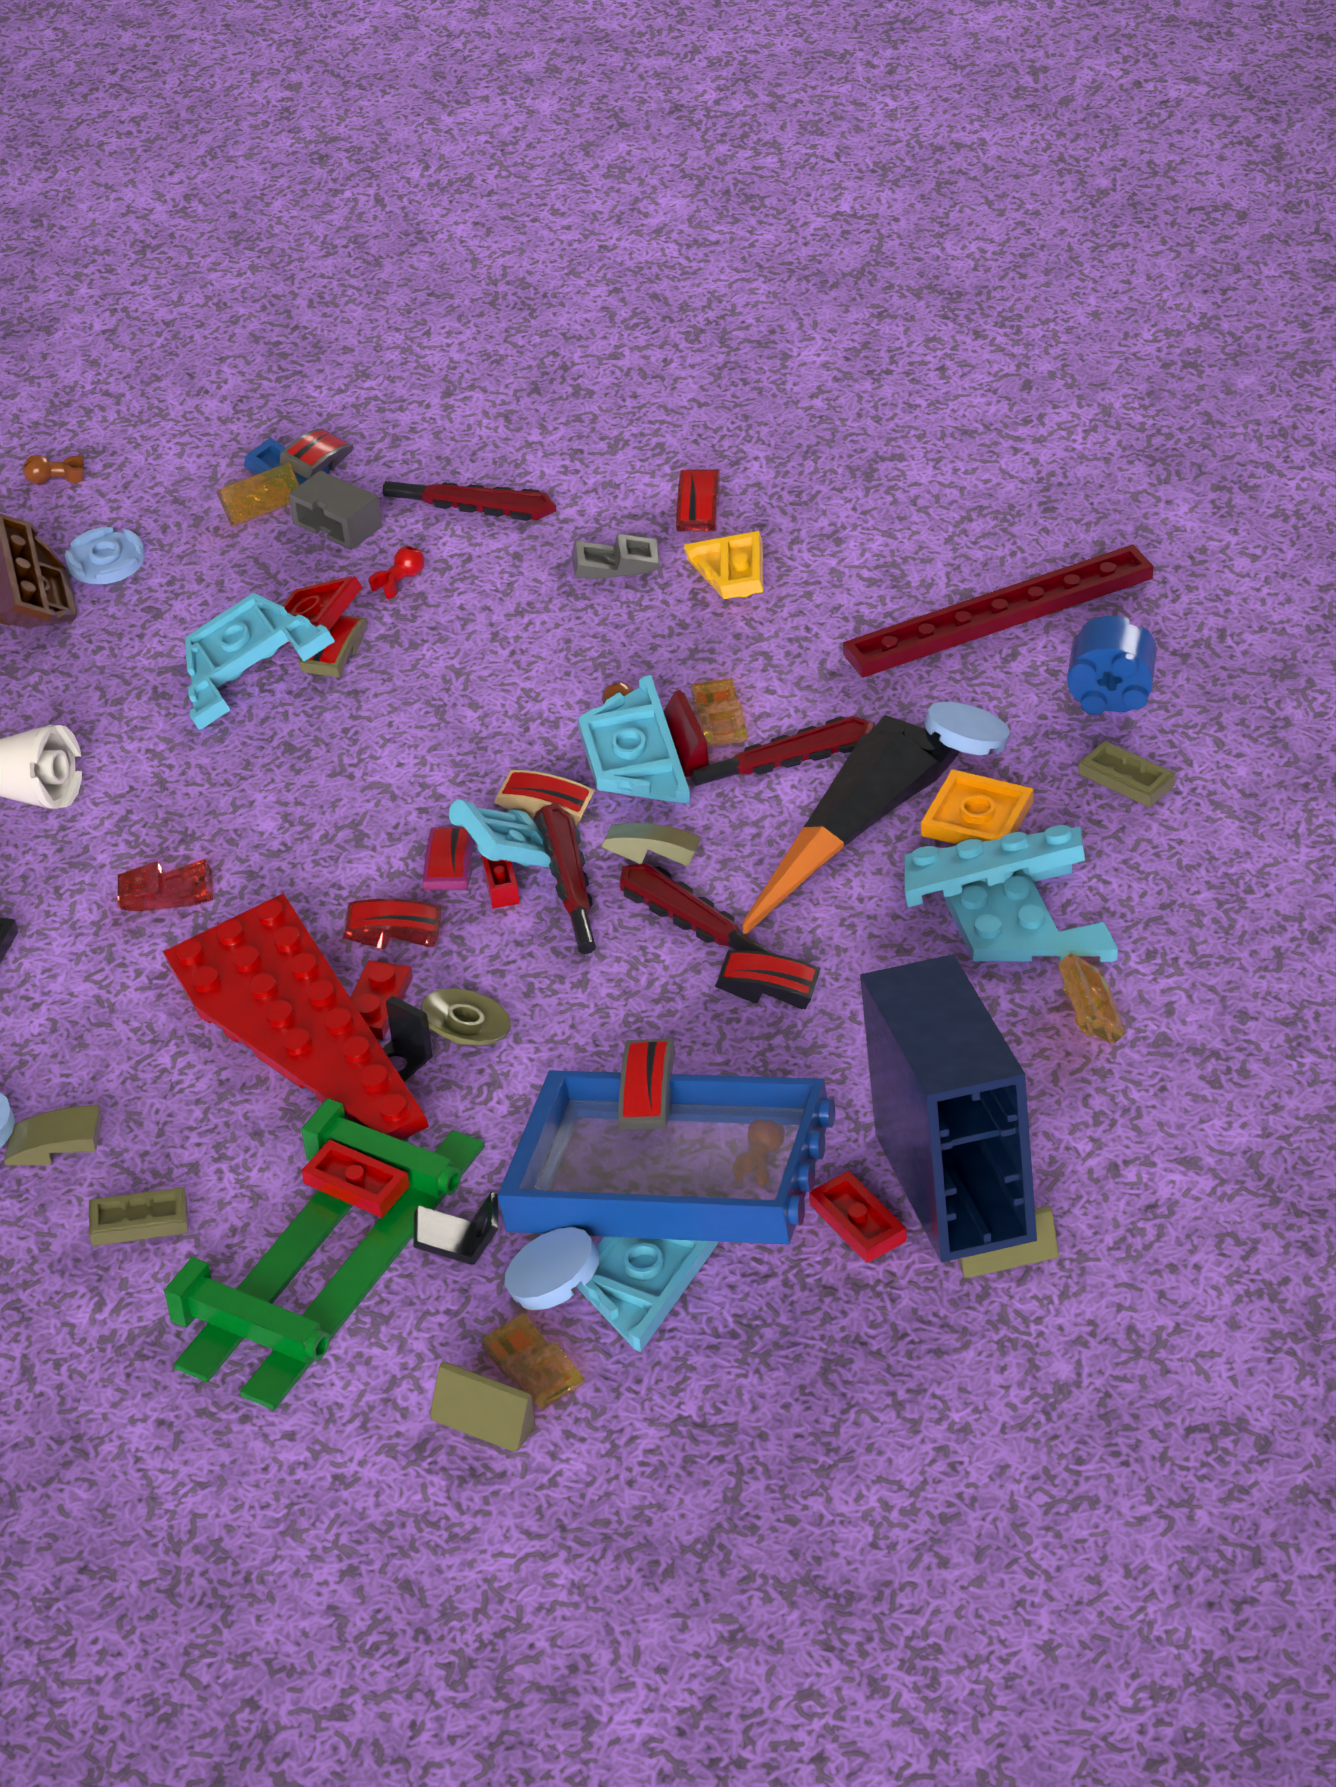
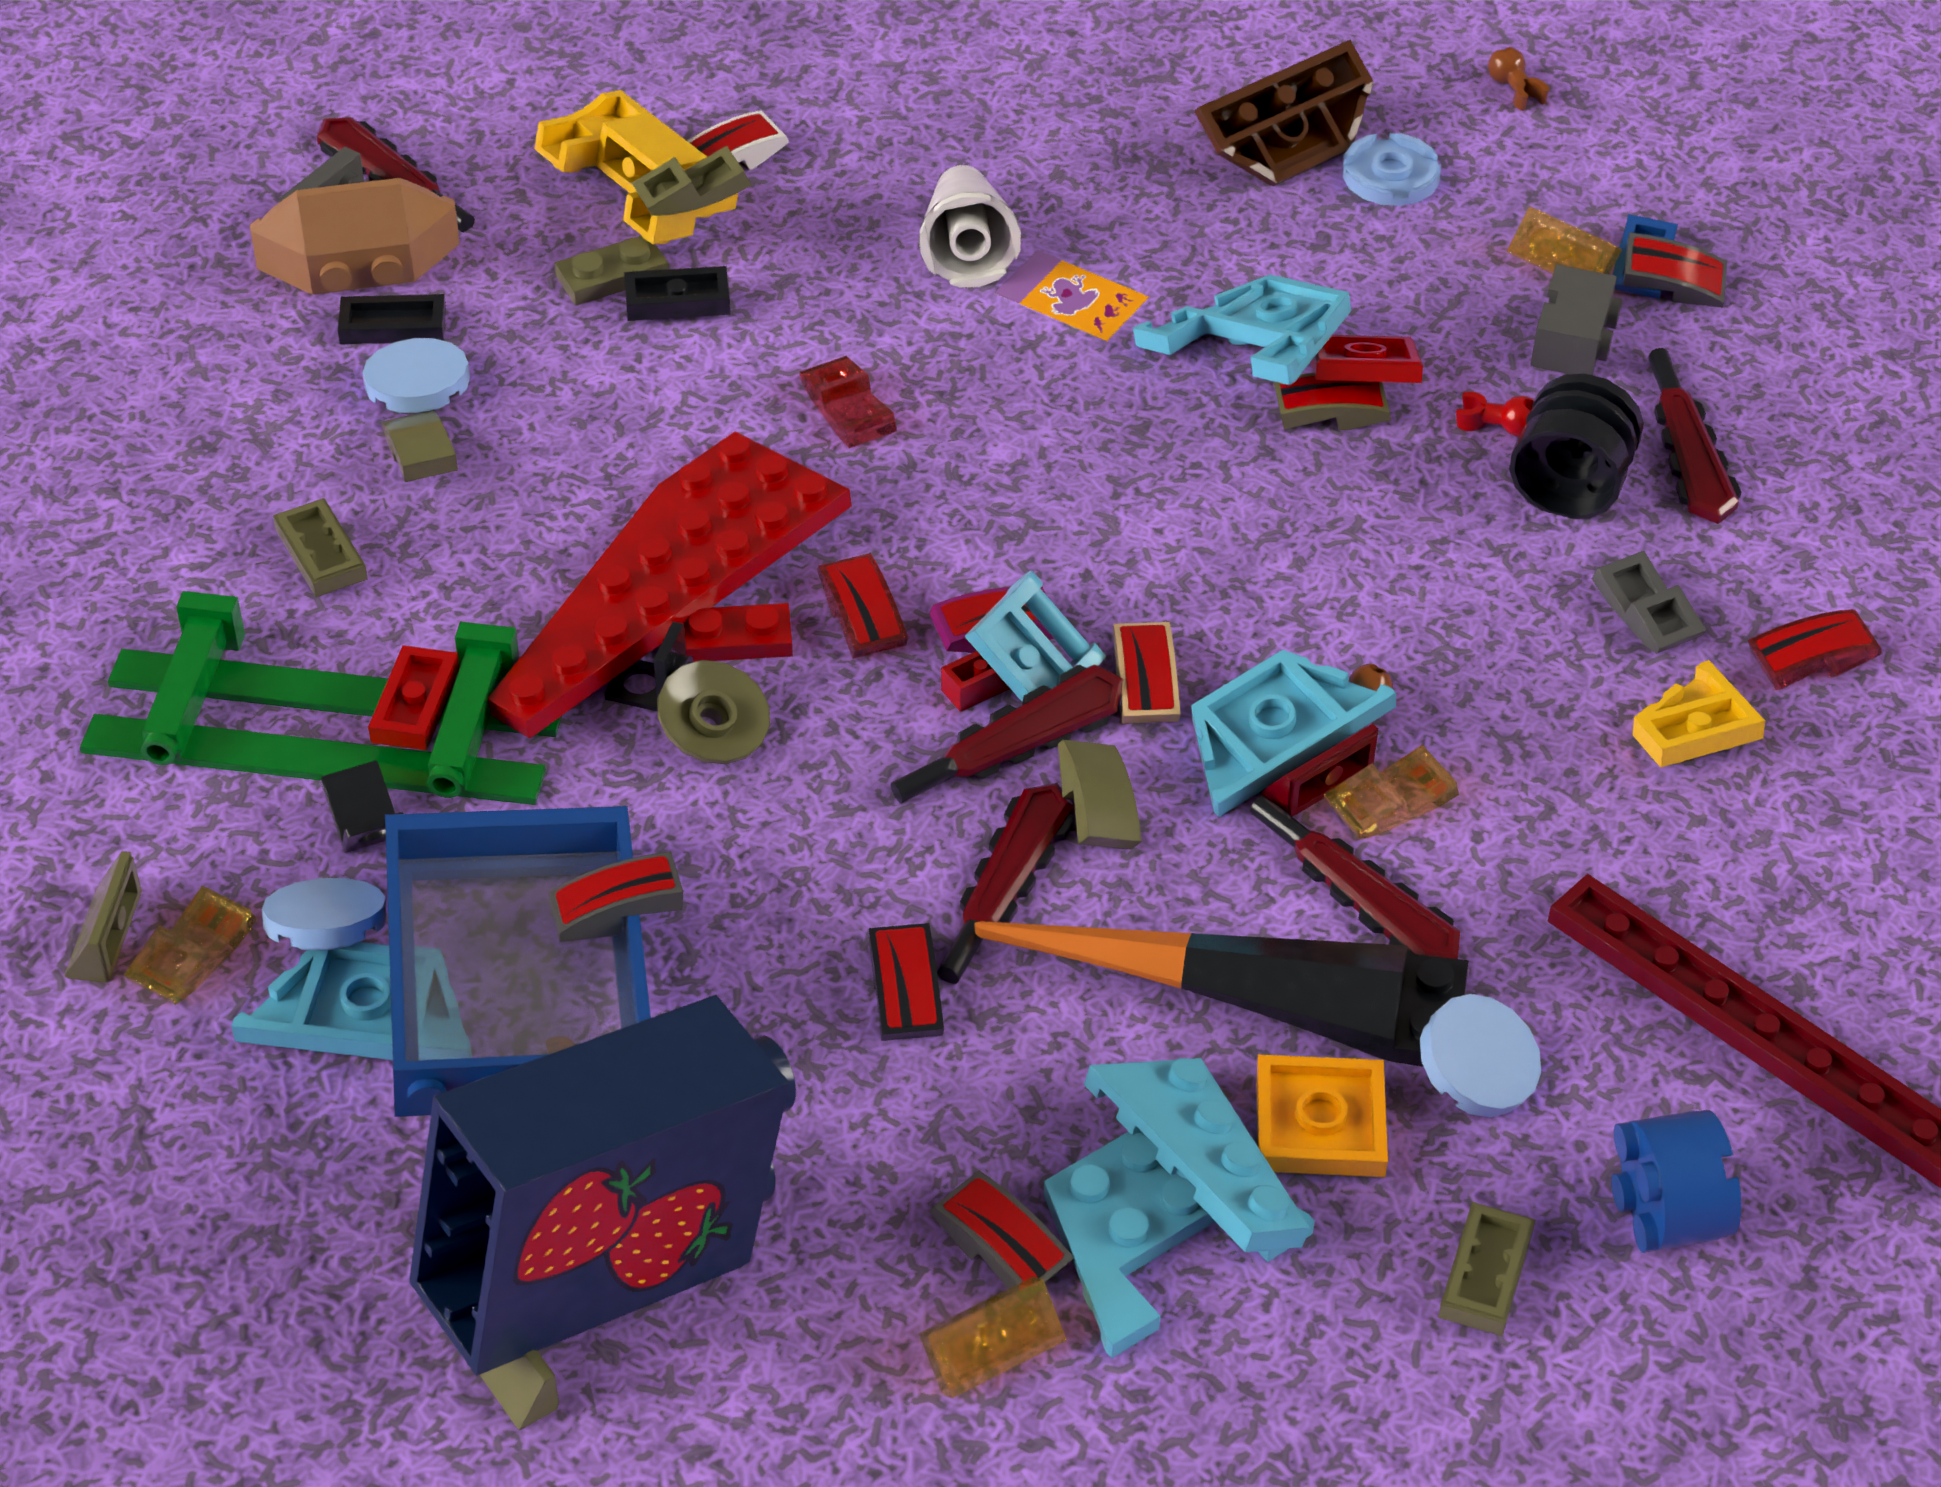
camera: 65 degrees right, 5 degrees up
(124, 748) = (1072, 295): none -> sticker
(474, 533) = (1576, 446): none -> black wheel
(1006, 976) = (1001, 1230): none -> slope

